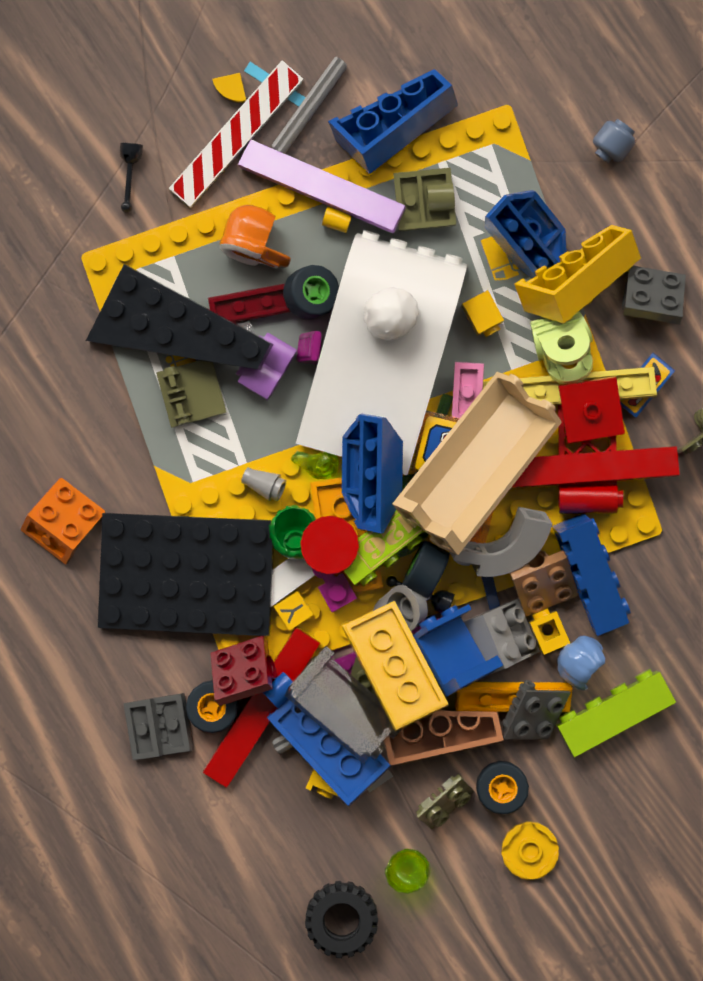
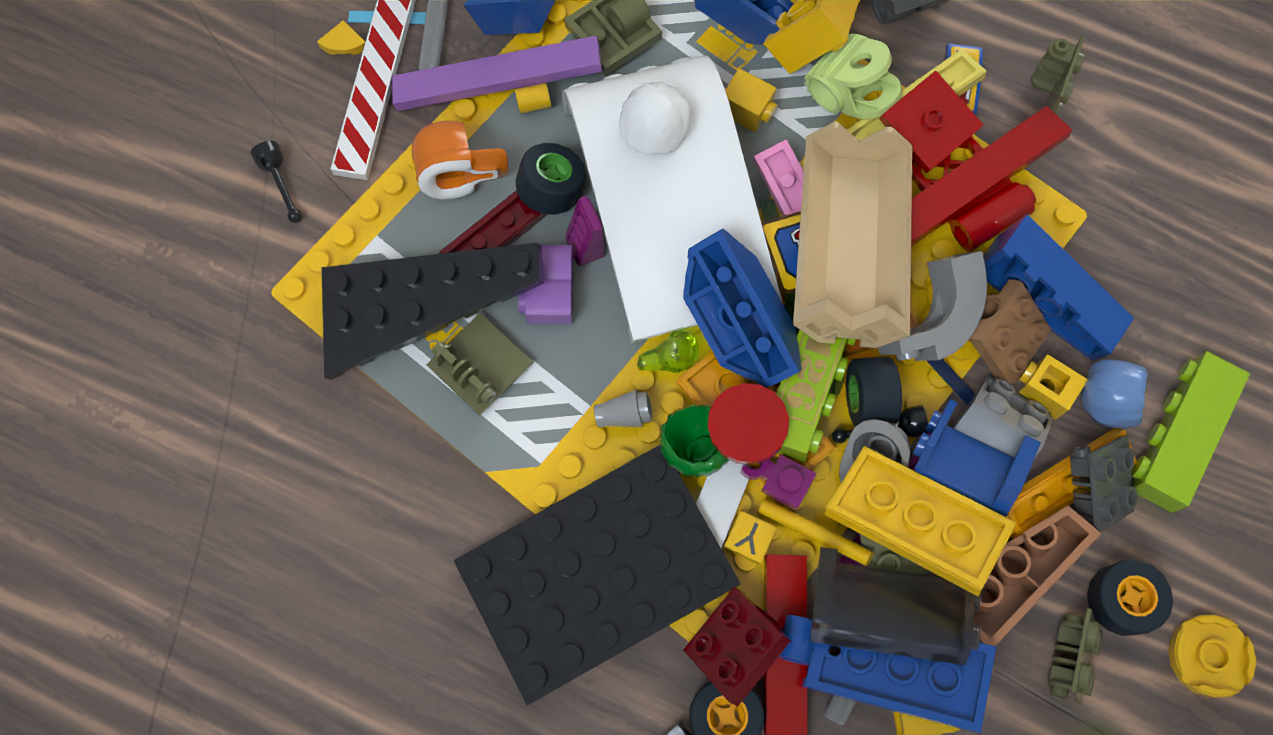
camera: 30 degrees left, 15 degrees down
(62, 520) = (408, 601): orange bracket -> none
(334, 632) = (816, 532): none -> yellow bar

